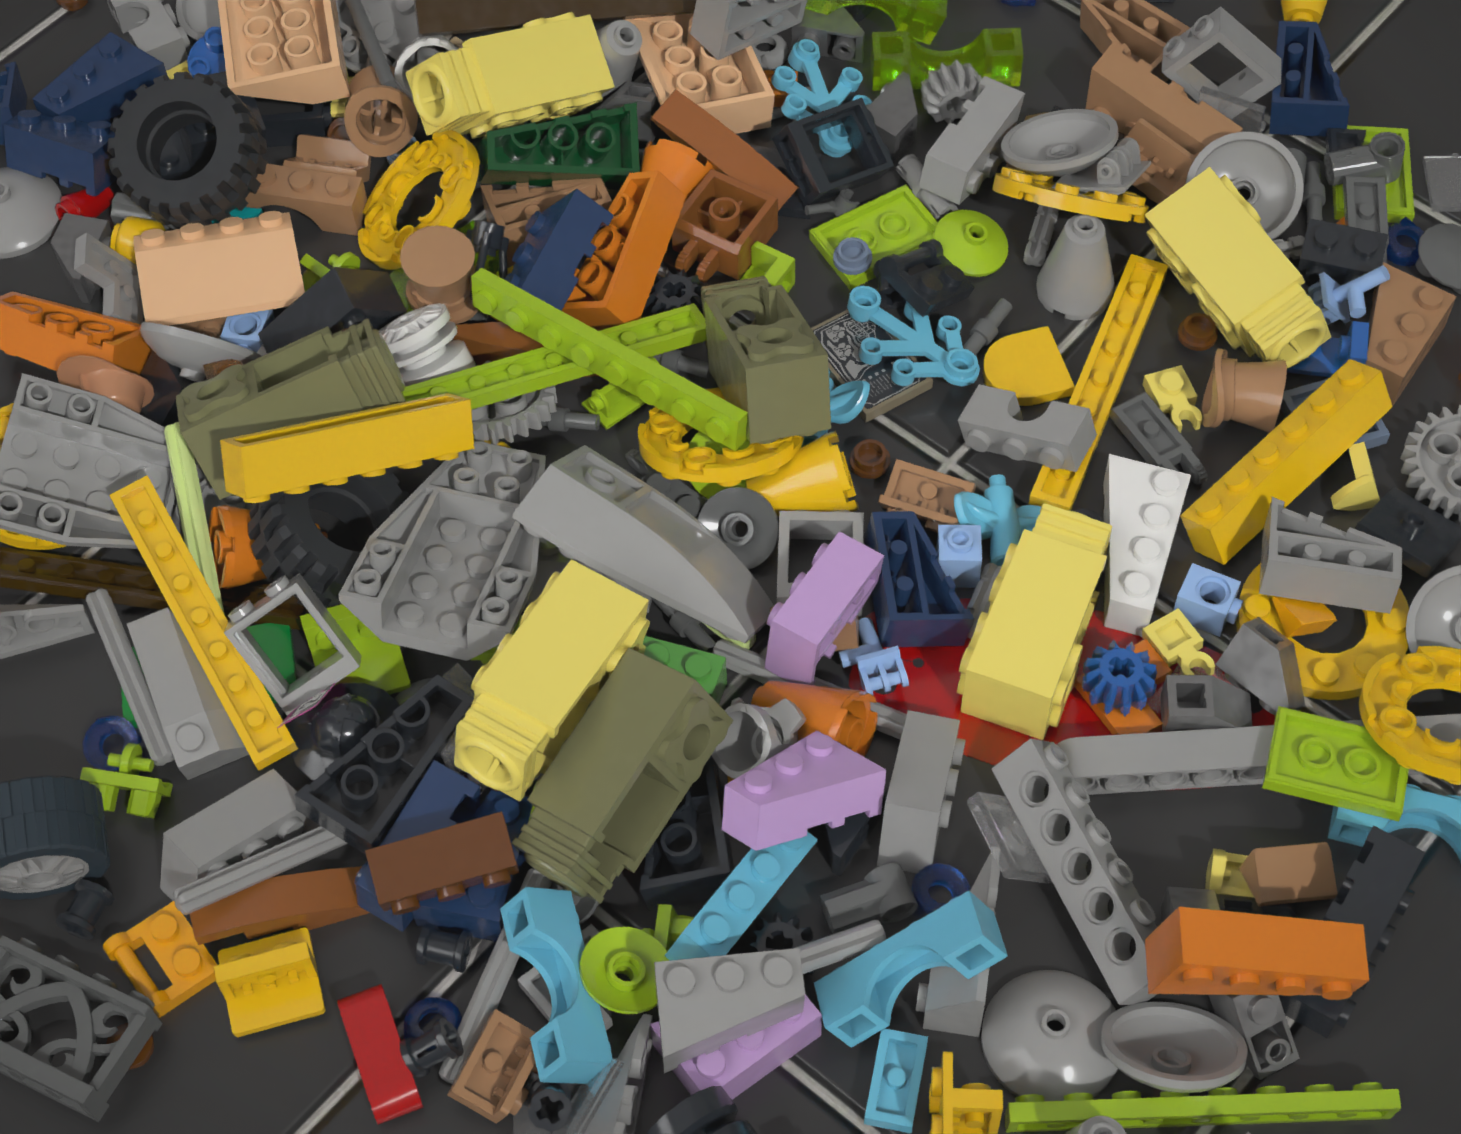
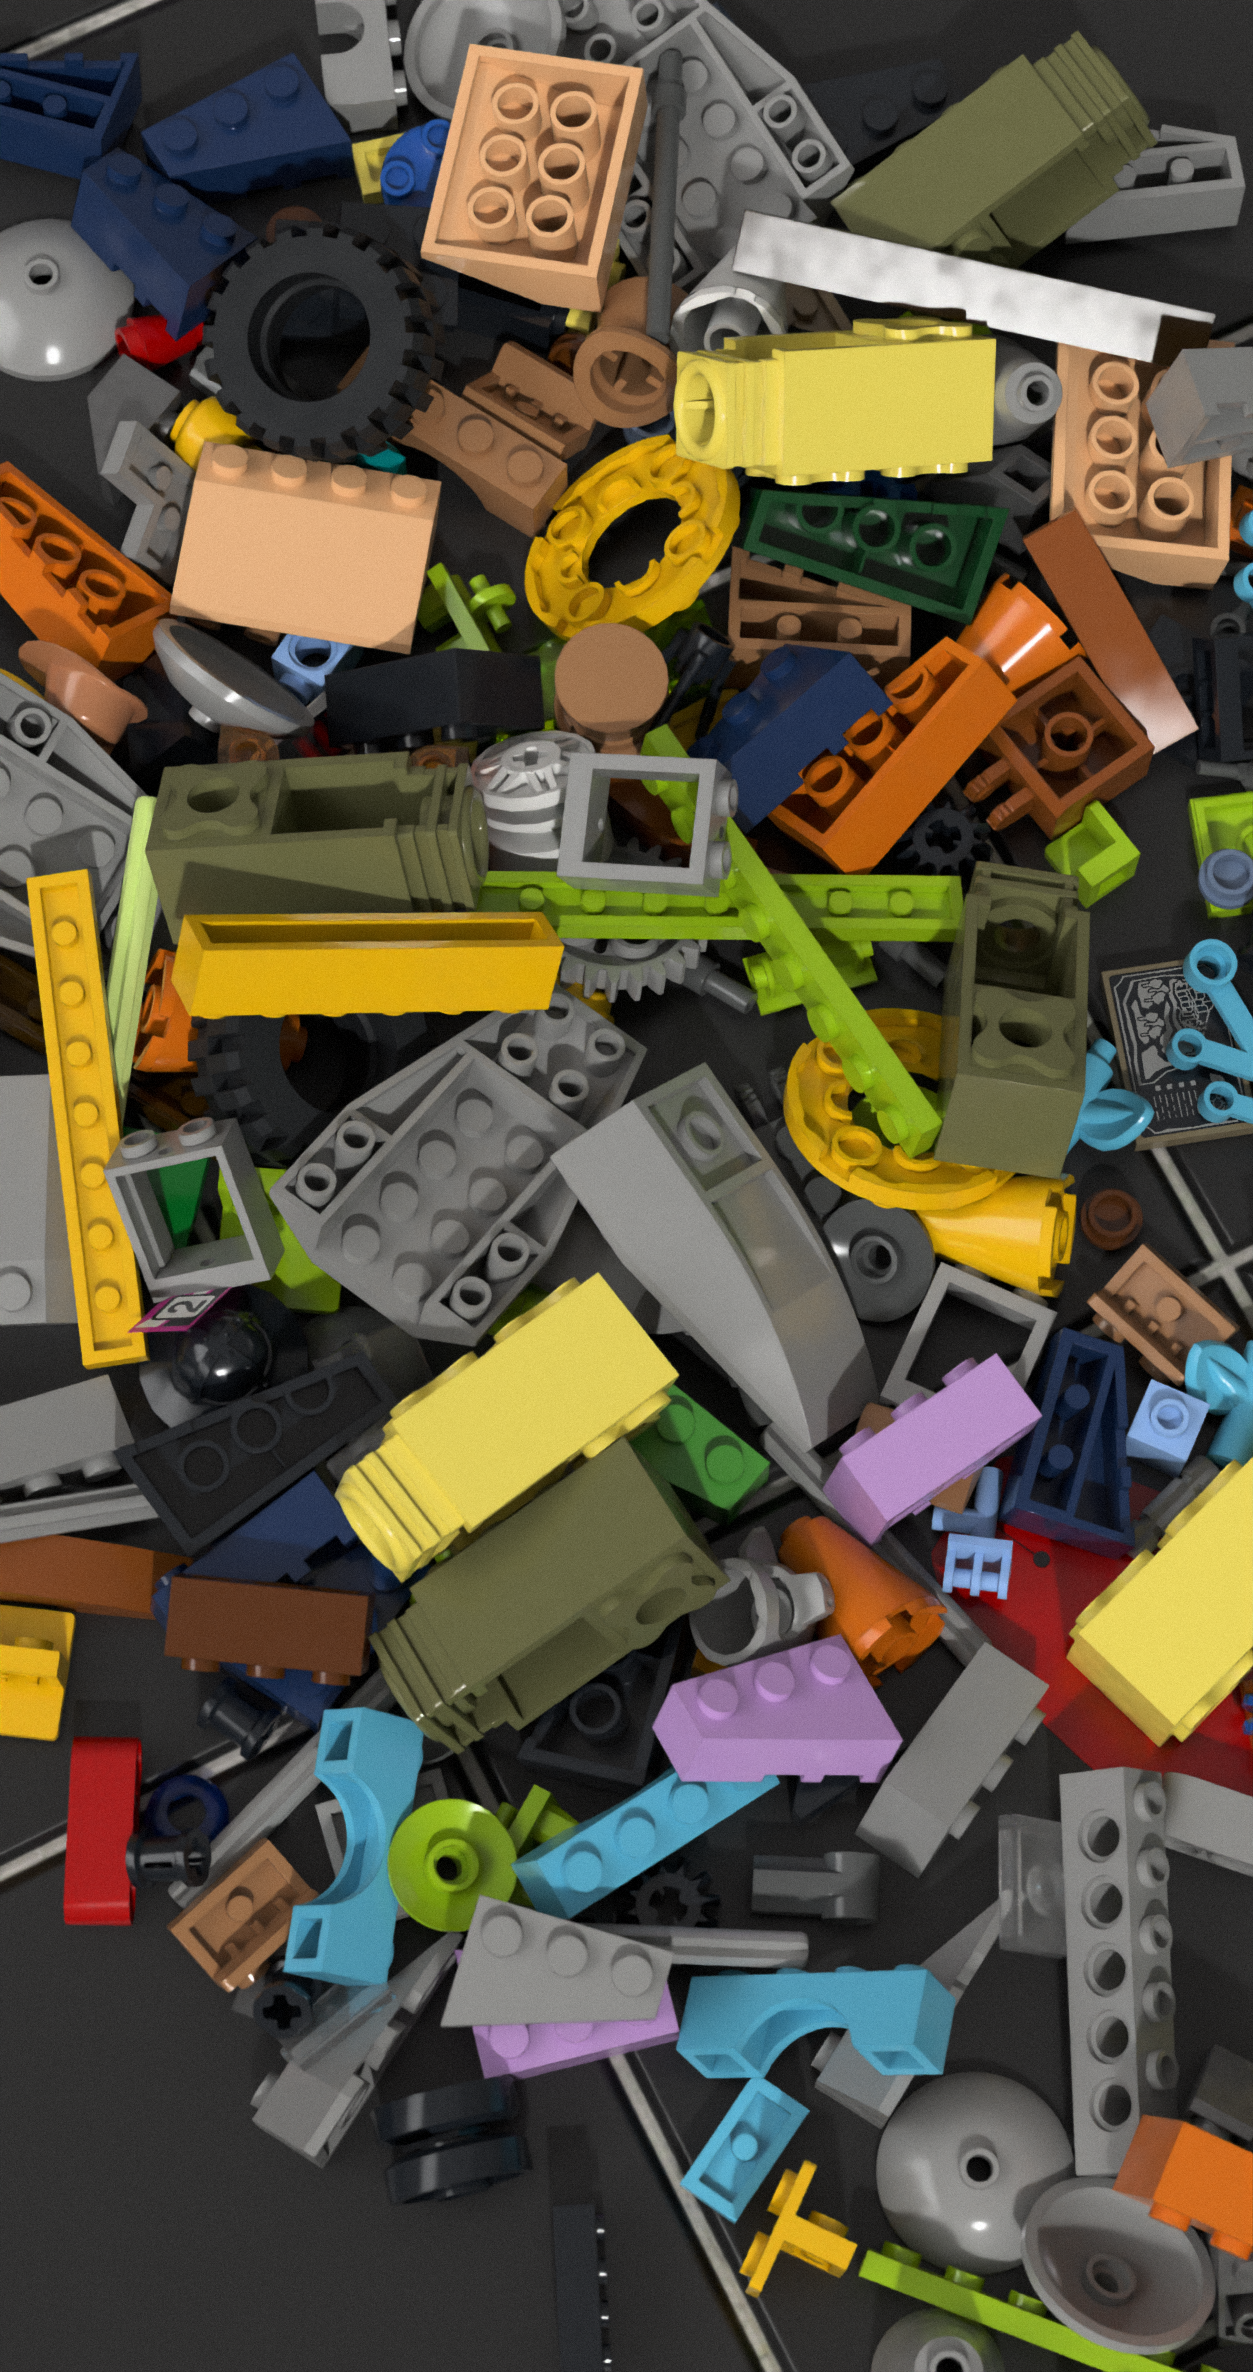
camera: 20 degrees right, 15 degrees up
(503, 348) = (586, 817): none -> light grey window
(937, 875) = (942, 1898): clear blue piece -> none

